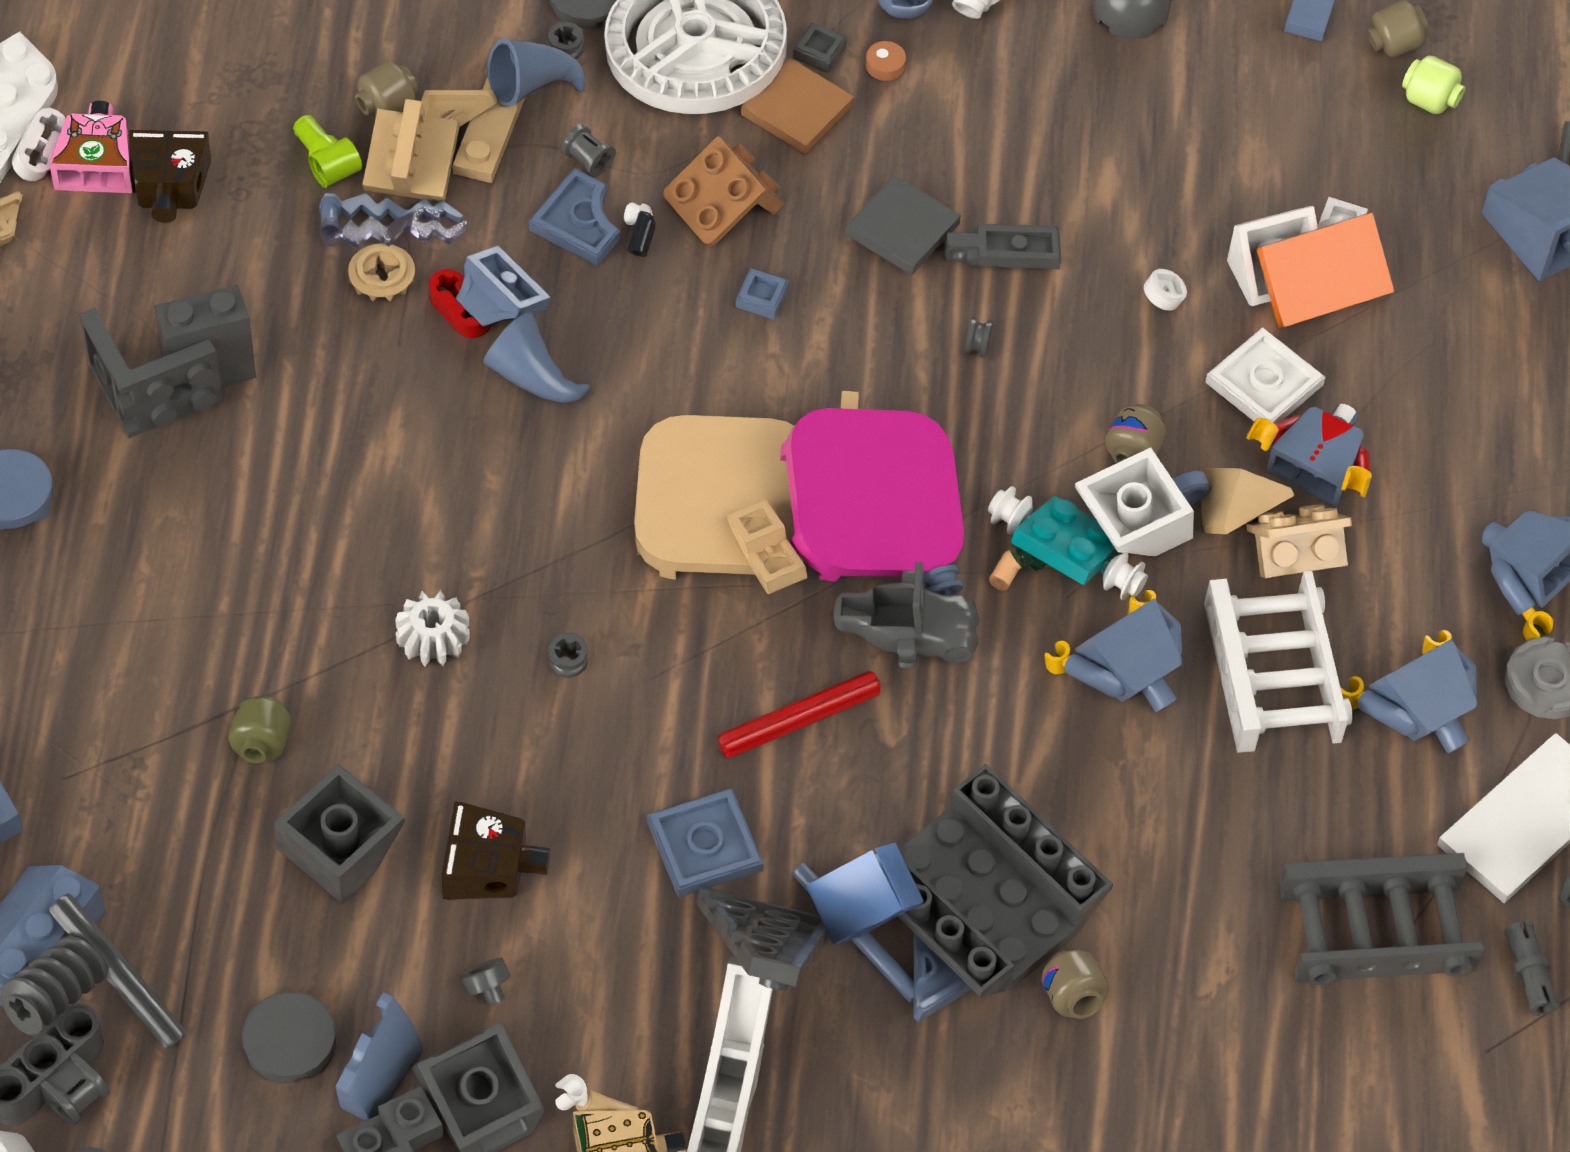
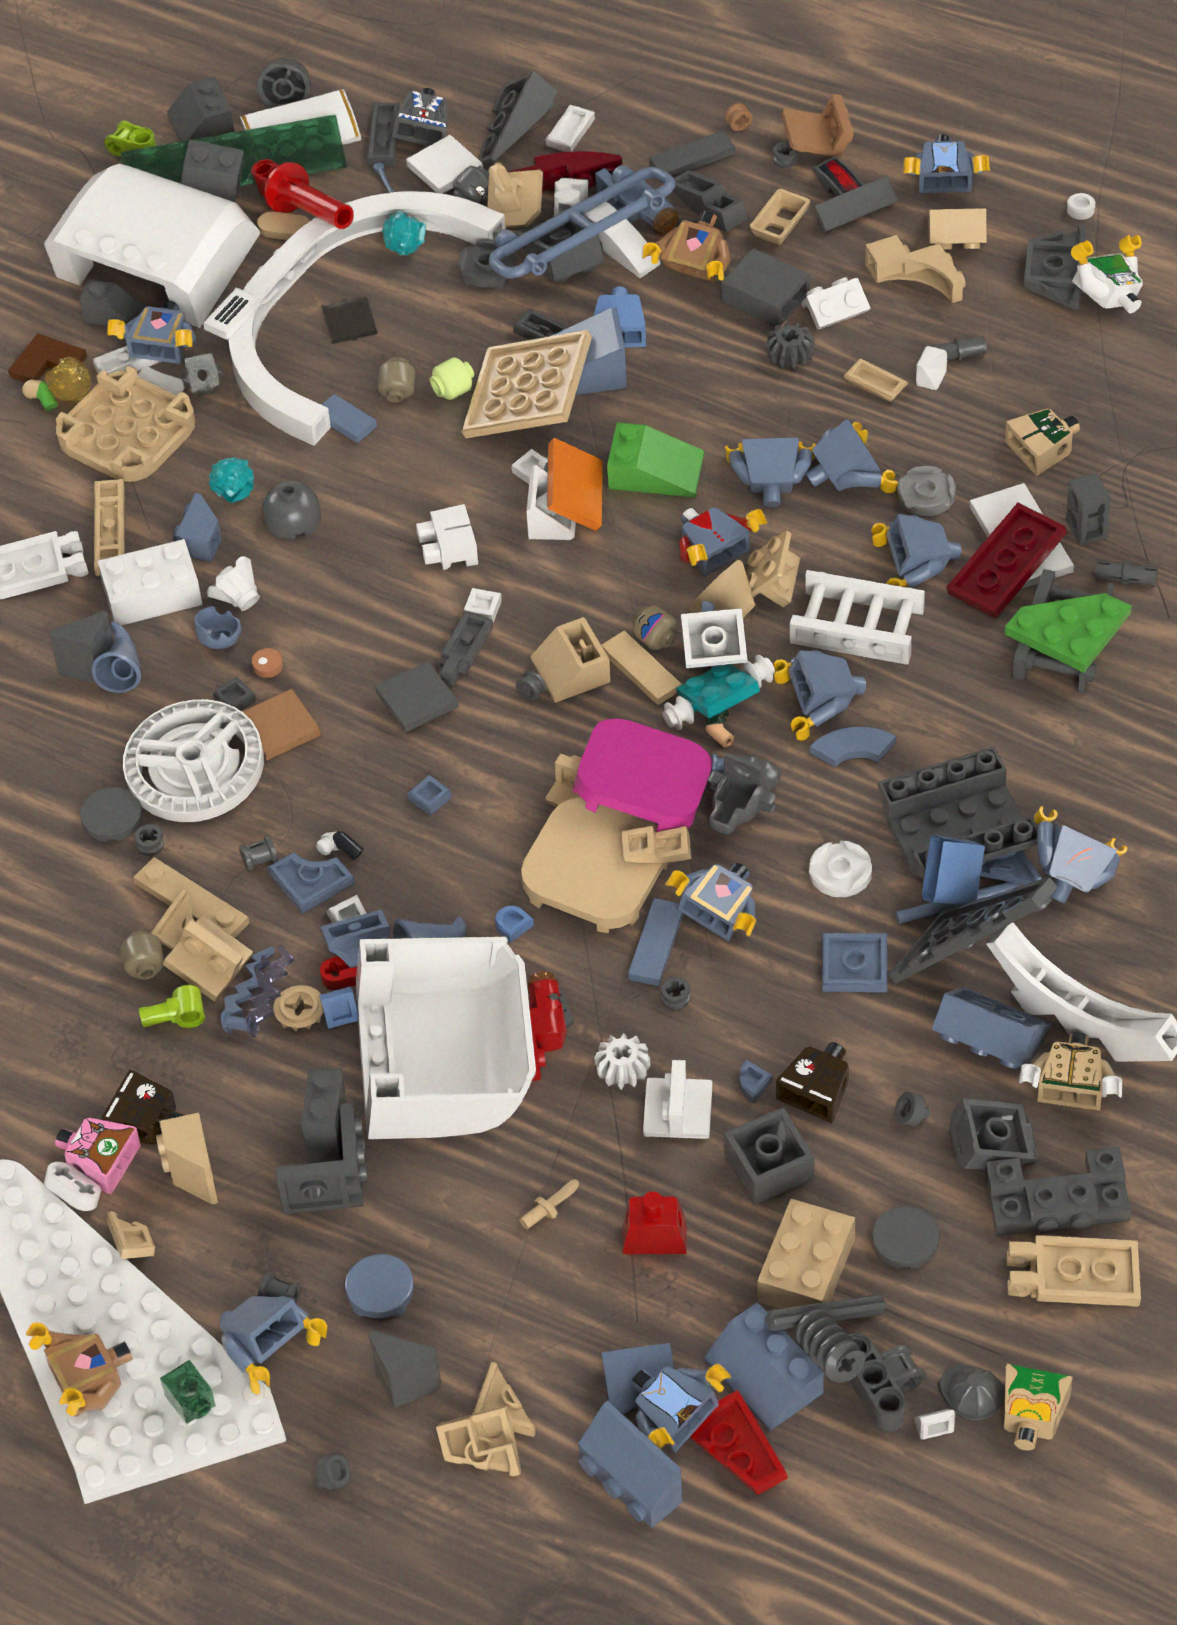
camera: 60 degrees left, 5 degrees down
(107, 233) = (186, 1156): none -> tan slope
(187, 731) = (654, 1225): none -> red torso
(189, 622) = (546, 1207): none -> tan piece
(202, 928) = (806, 1256): none -> tan brick
(260, 727) = (659, 1178): olive head -> none
(368, 417) = (442, 1035): none -> white slope
(379, 1061) = (958, 1195): sand blue slope -> none
(391, 714) = (677, 1105): none -> white bracket
(393, 308) = (339, 1007): none -> medium blue tile
(453, 527) = (548, 1016): none -> red plate
(468, 785) = (753, 1080): none -> sand blue tile
(523, 66) = (176, 865): sand blue hat -> none
(545, 271) = (347, 909): none -> white slope
(604, 445) = (512, 922): none -> medium blue tile
(640, 608) = (656, 942): none -> sand blue tile
(660, 1030) = (990, 1027): none -> sand blue slope
(720, 190) = (336, 788): medium nougat bracket -> none
(722, 645) = (717, 898): none -> sand blue torso
(799, 714) = (780, 880): red axle -> none
(850, 778) = (840, 869): none -> white tile
(971, 1043) = (1073, 857): none -> torso
(1035, 366) = (571, 661): none -> tan slope
(1064, 727) = (852, 744): none -> sand blue tile
(1072, 447) = (641, 667): none -> tan tile
(1075, 983) = (1049, 793): dark tan head -> none
(1088, 246) = (483, 603): none -> white tile
(1165, 289) = (541, 575): white tile -> none
(1174, 173) = (452, 537): none -> white hips
(1265, 378) = (639, 548): white plate -> none
(1369, 917) = (1070, 628): none -> bright green plate
(1417, 345) = (653, 462): none -> bright green slope
(1459, 160) = (527, 384): none -> tan tile
(1462, 805) = (1006, 560): none -> dark red plate
(1477, 477) = (770, 465): none -> sand blue torso

